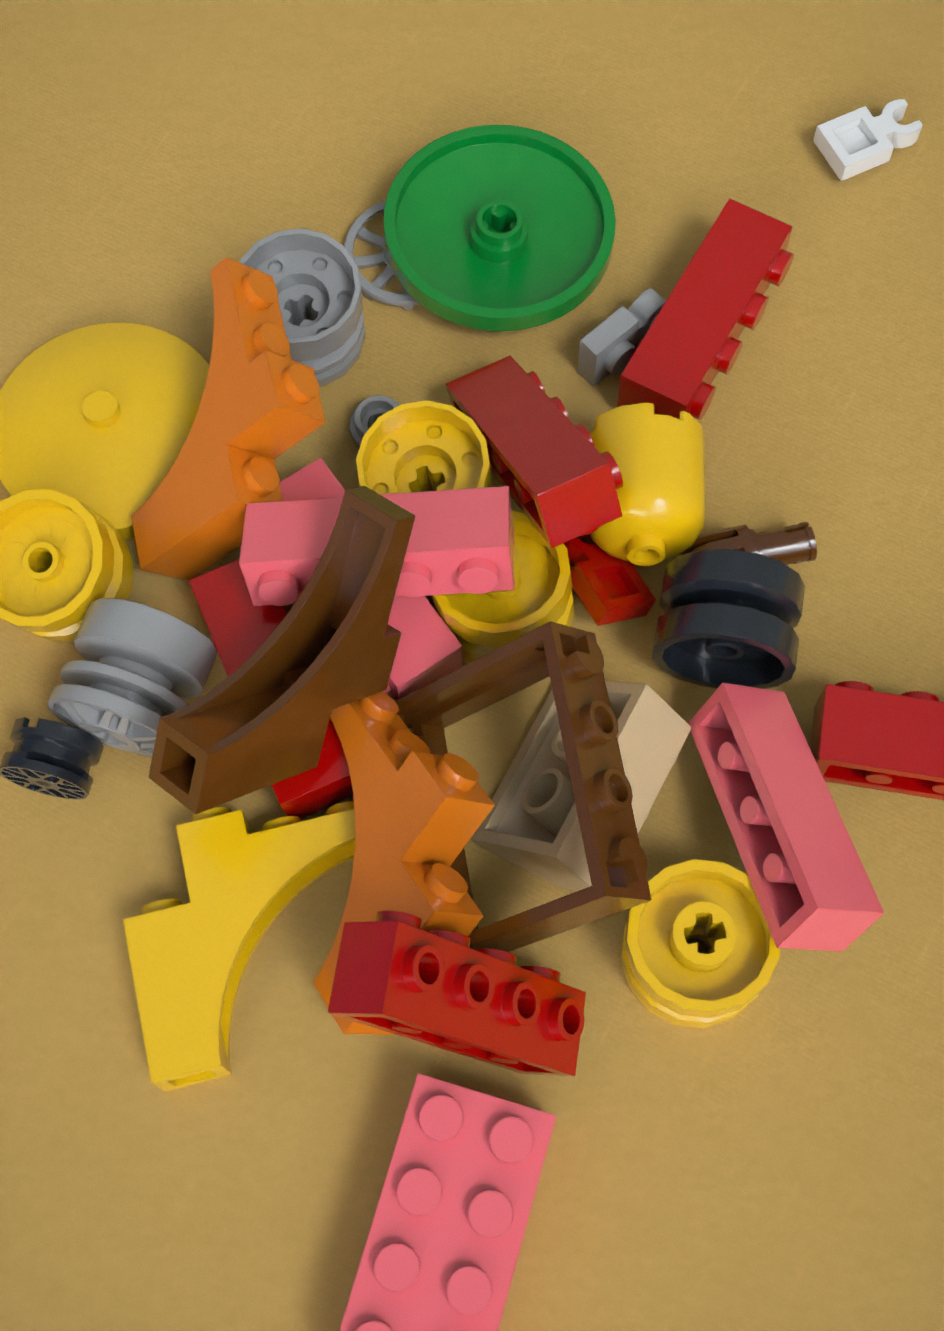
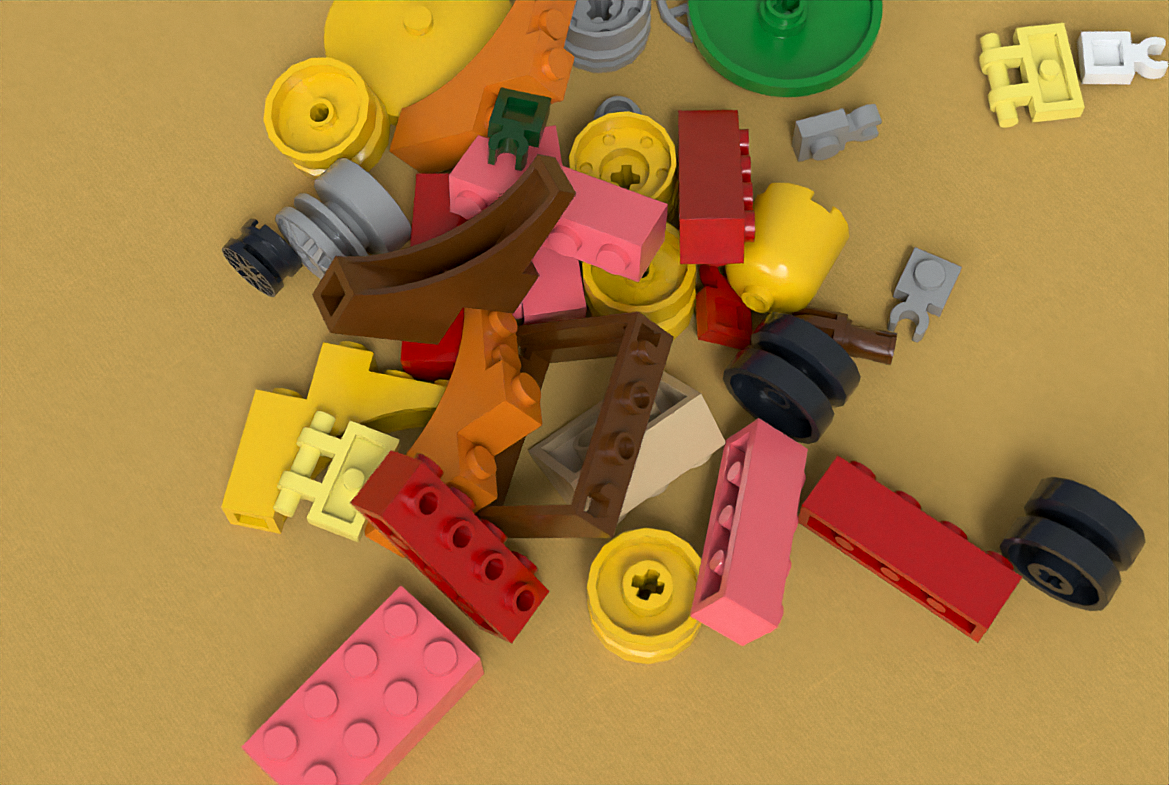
camera: 25 degrees right, 0 degrees up
(288, 472) = (516, 124): none -> dark green plate
(297, 977) = (352, 464): none -> light yellow plate
(707, 313) = (907, 144): red brick -> none
(799, 179) = (1046, 71): none -> light yellow plate
(804, 462) = (923, 289): none -> light grey plate

